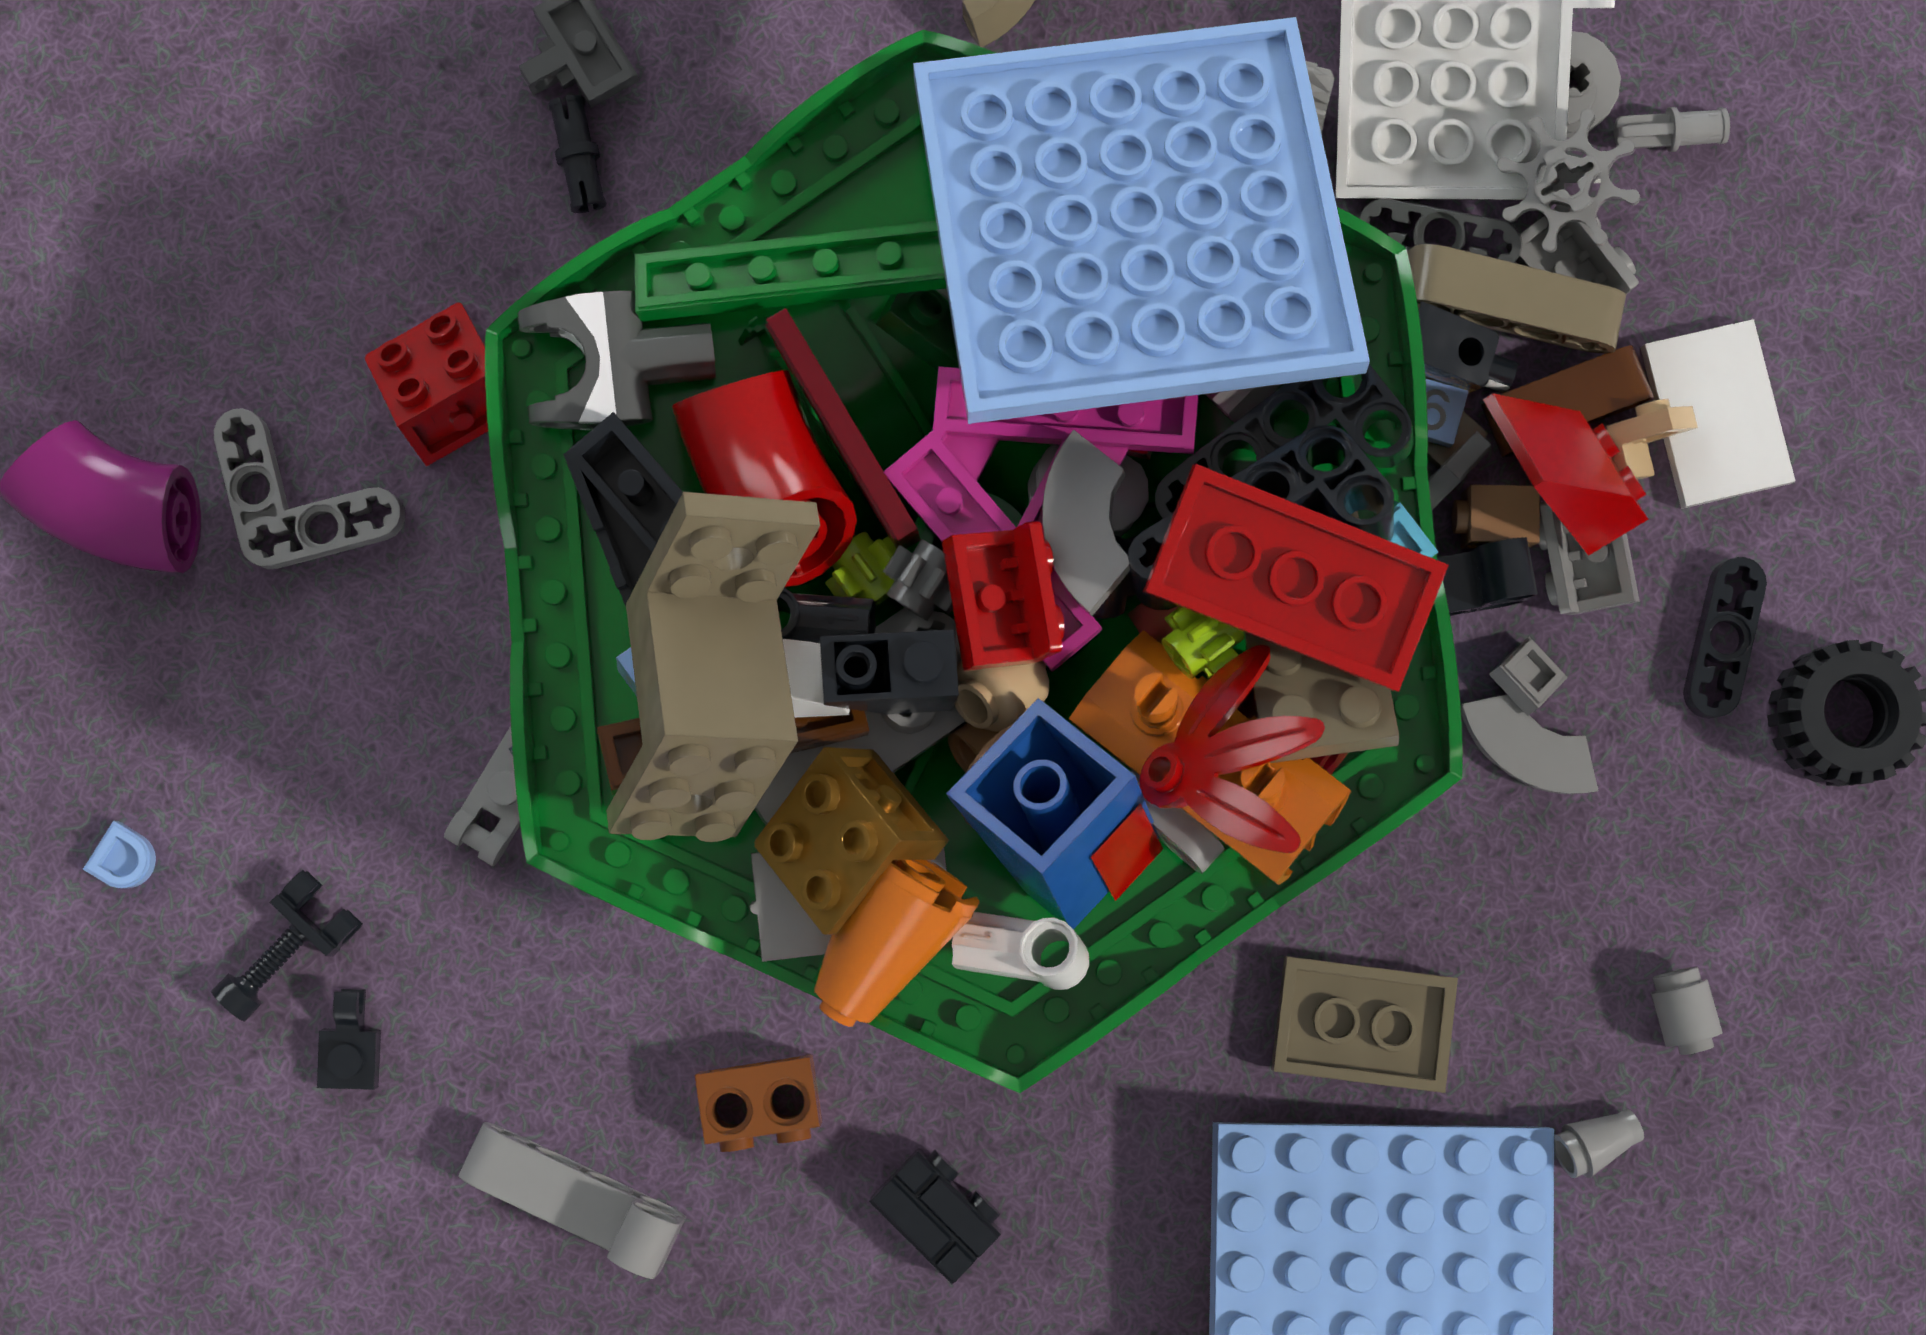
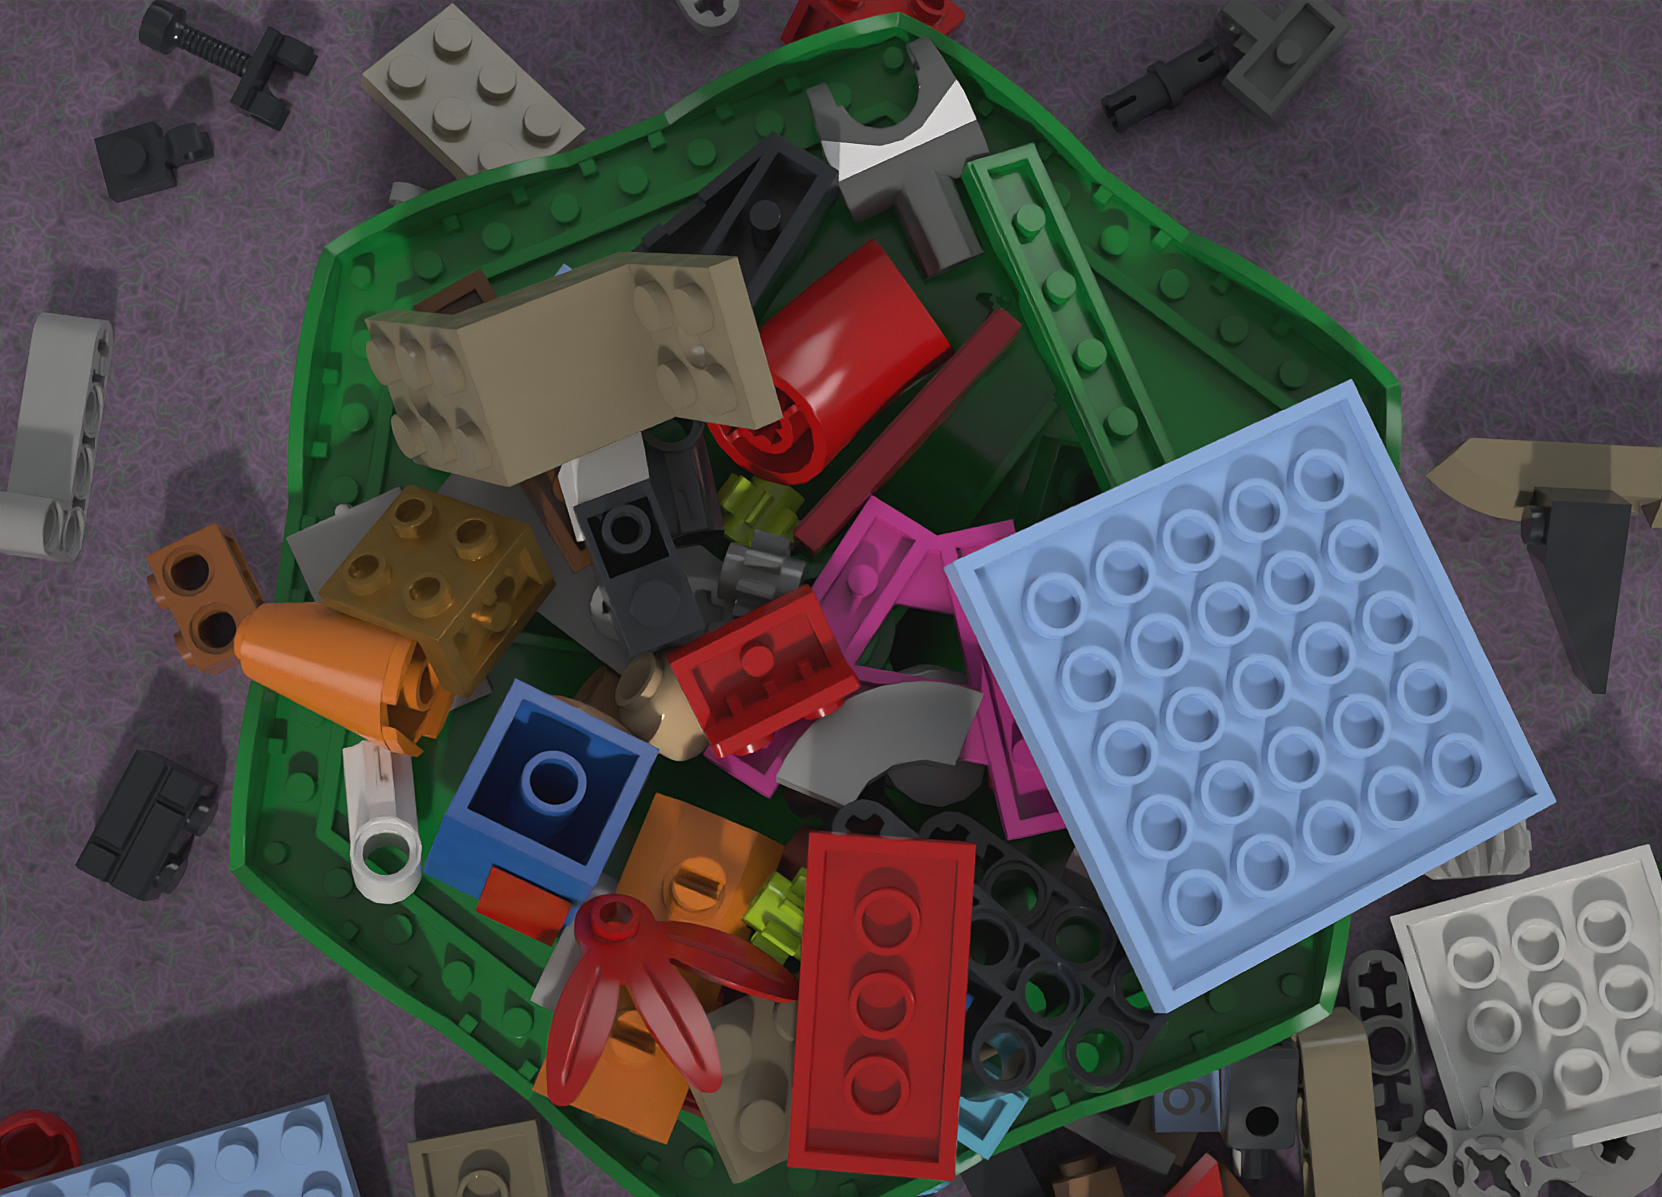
camera: 75 degrees right, 0 degrees up
(401, 747) = (468, 98): none -> dark tan plate

